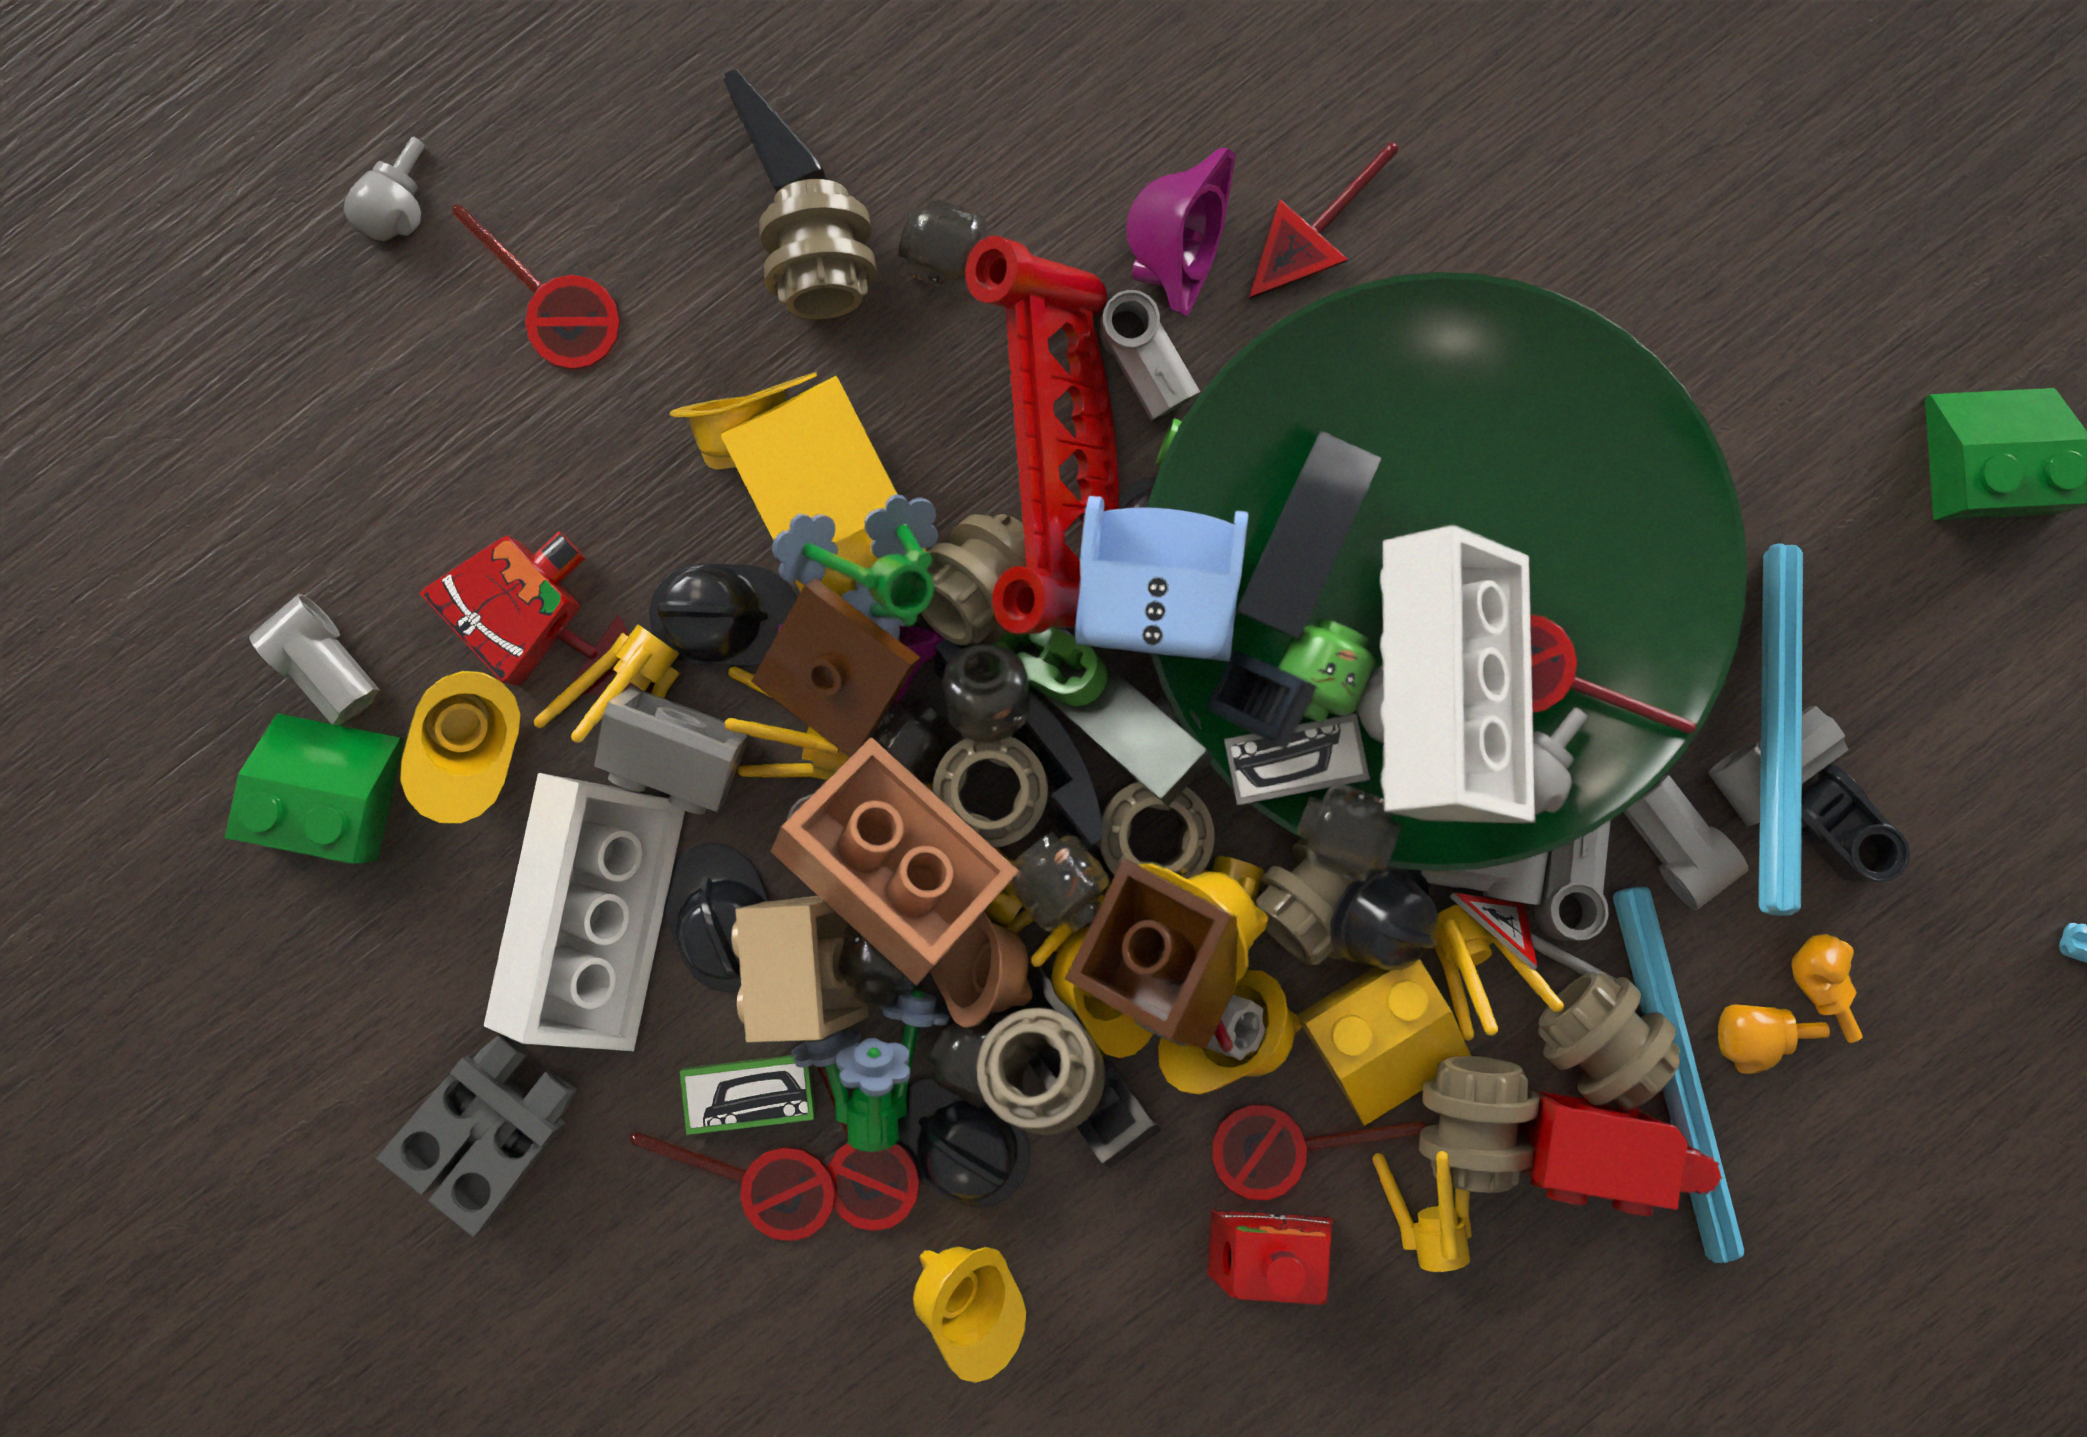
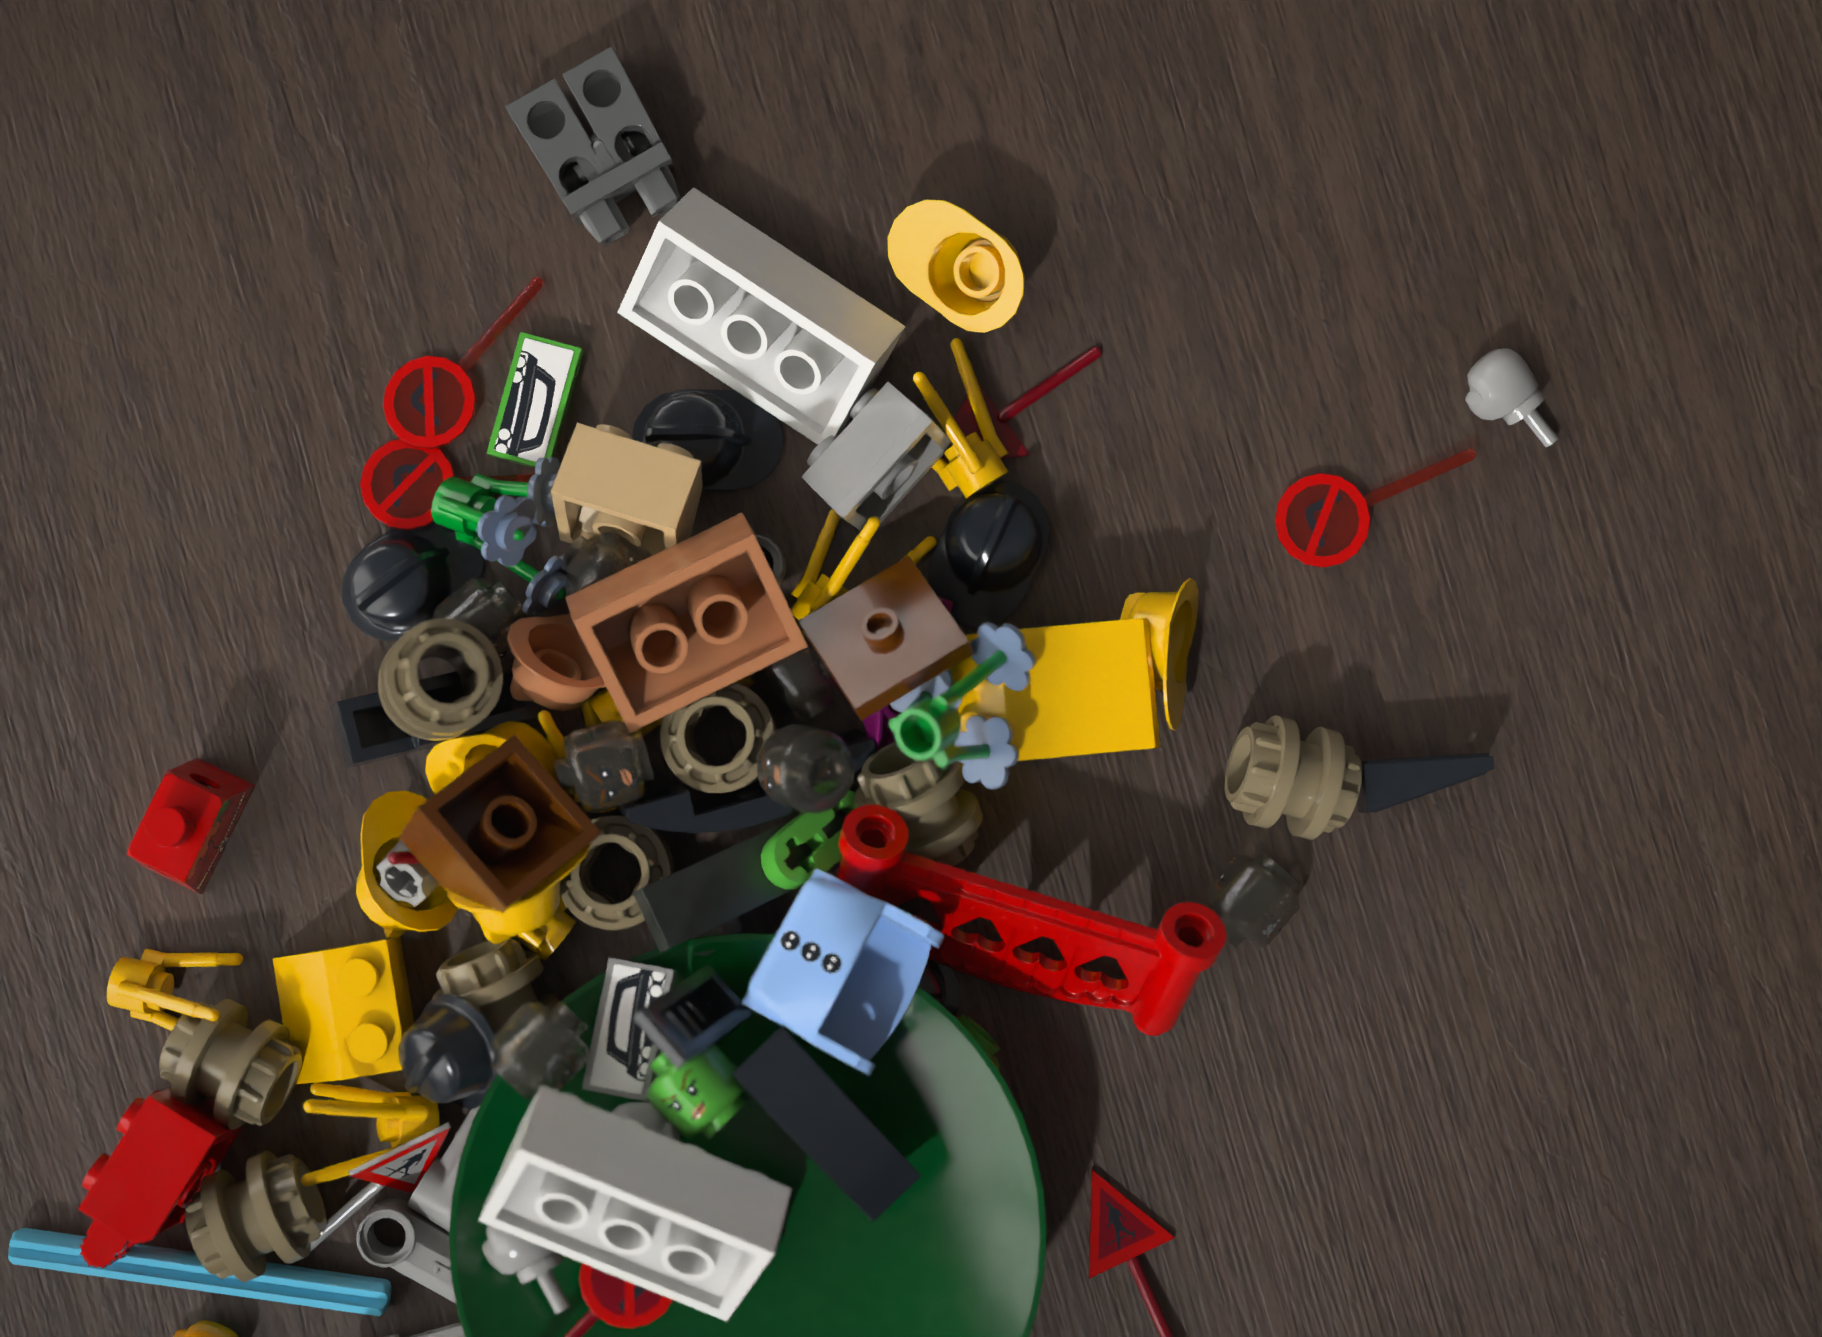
camera: 115 degrees right, 0 degrees up
(305, 647) = (1111, 156): light grey piece -> none
(316, 790) = (973, 118): green slope -> none
(509, 602) = (1076, 360): red torso -> none
(971, 1309) = (255, 528): yellow piece -> none
(1148, 360) = (1064, 1049): light grey piece -> none
(1179, 227) = (1180, 1126): magenta hat -> none
(1263, 1150) = (287, 856): piece -> none

